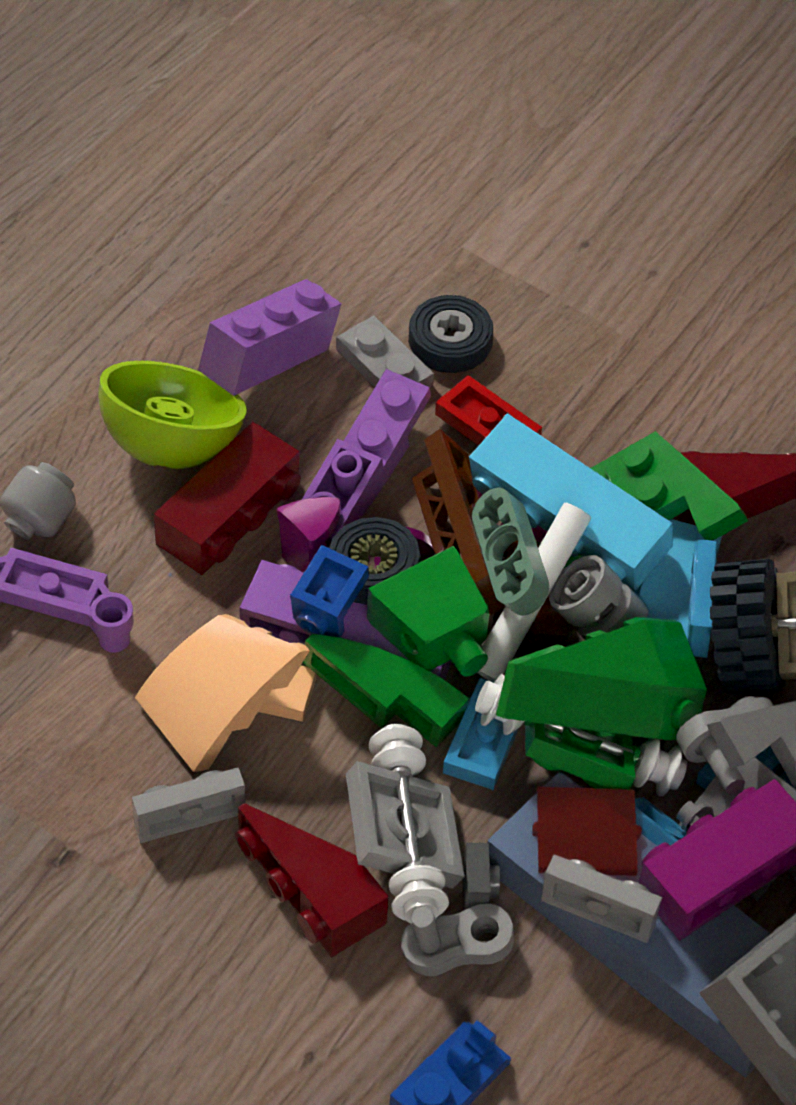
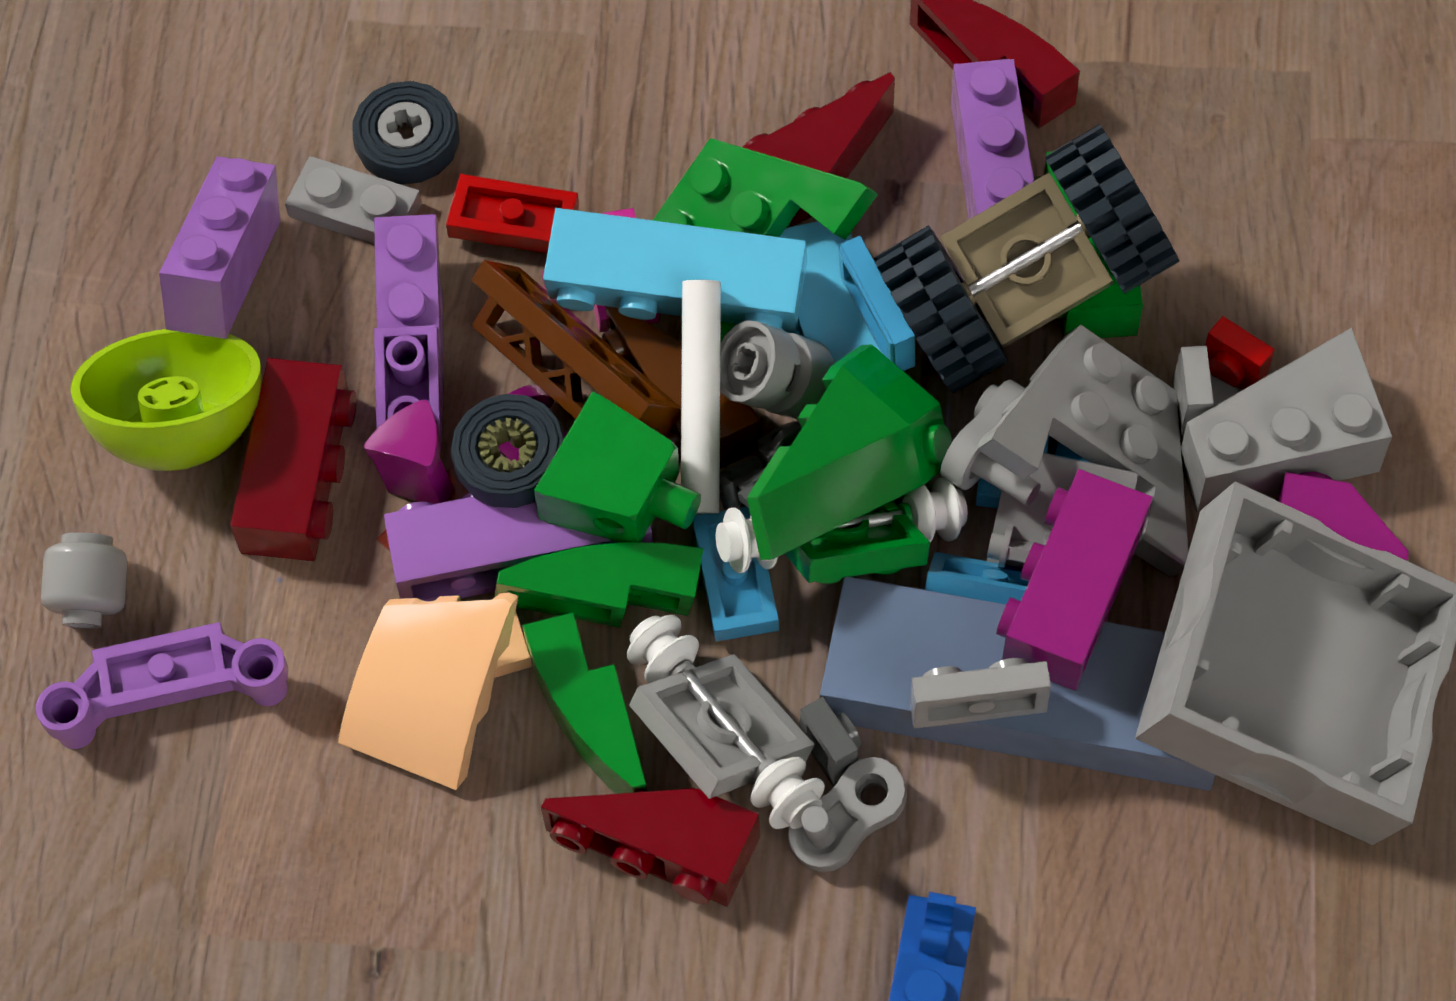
camera: 25 degrees left, 10 degrees up
(188, 805) = (494, 812): light grey plate -> none
(321, 757) = (585, 703): none -> green slope
(327, 592) = (490, 517): blue bracket -> none
(526, 561) = (679, 369): sand green beam -> none
(588, 827) = (913, 626): clear red piece -> none

